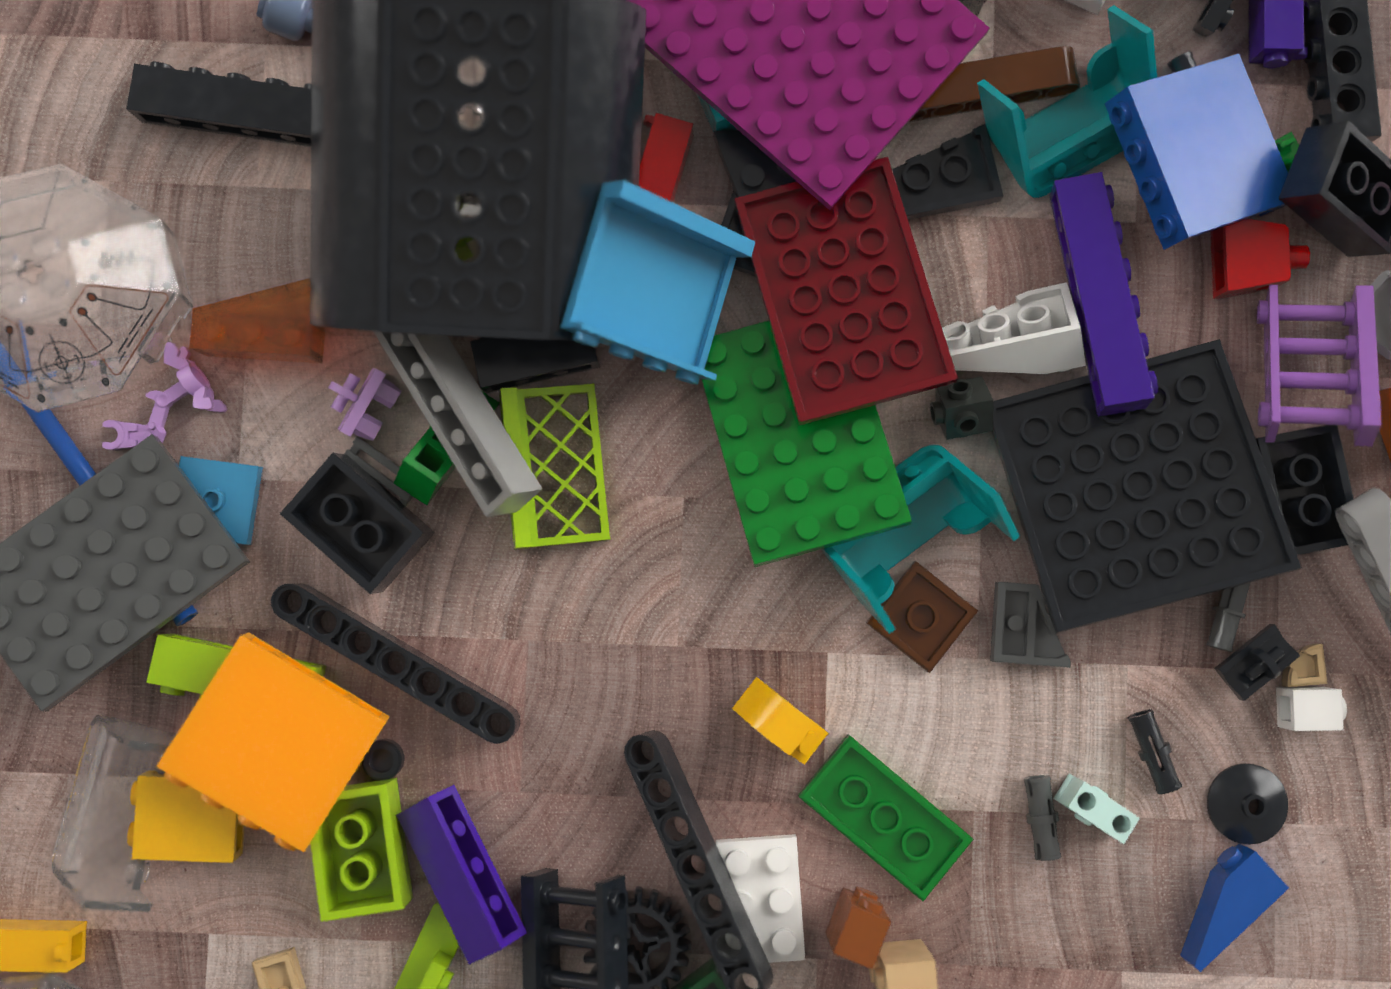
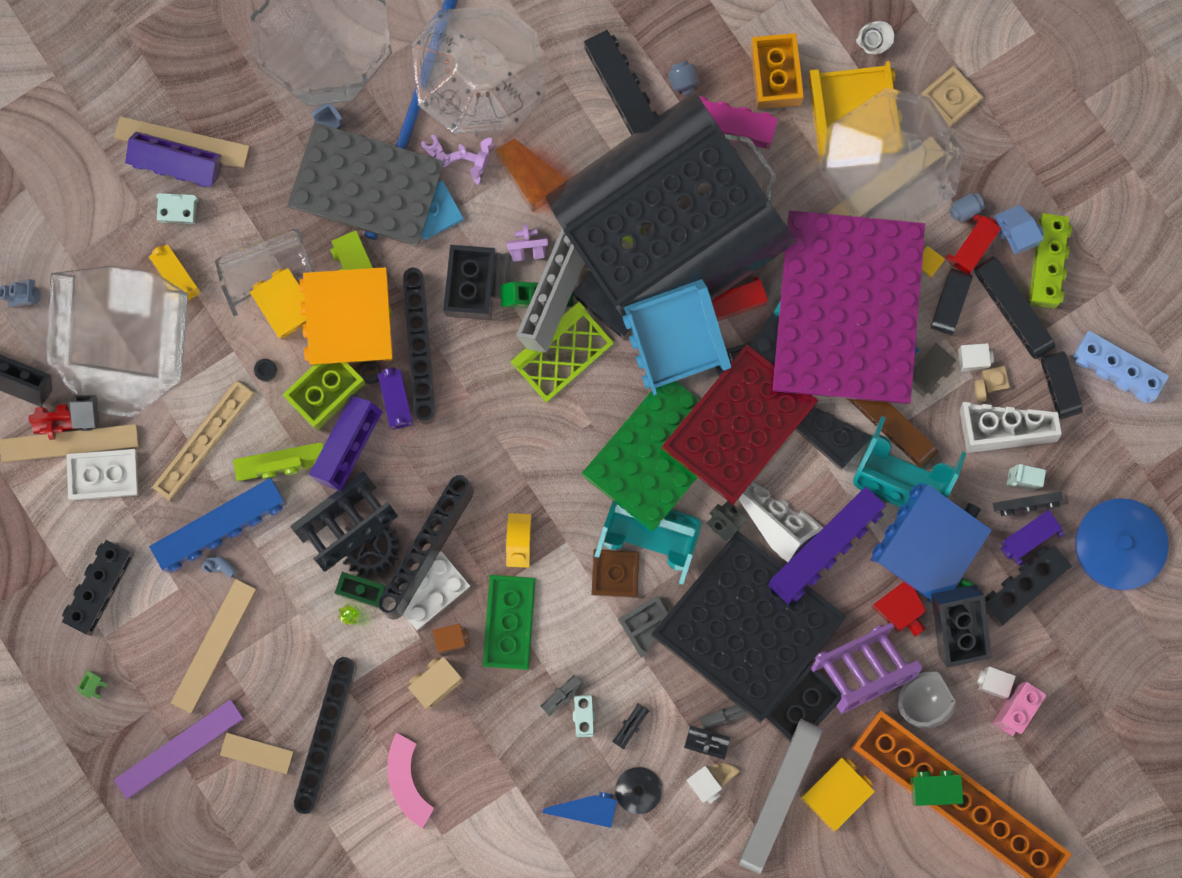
camera: 55 degrees right, 5 degrees down
(269, 909) = (265, 370): none -> black tile
(448, 751) = (395, 398): none -> dark purple brick

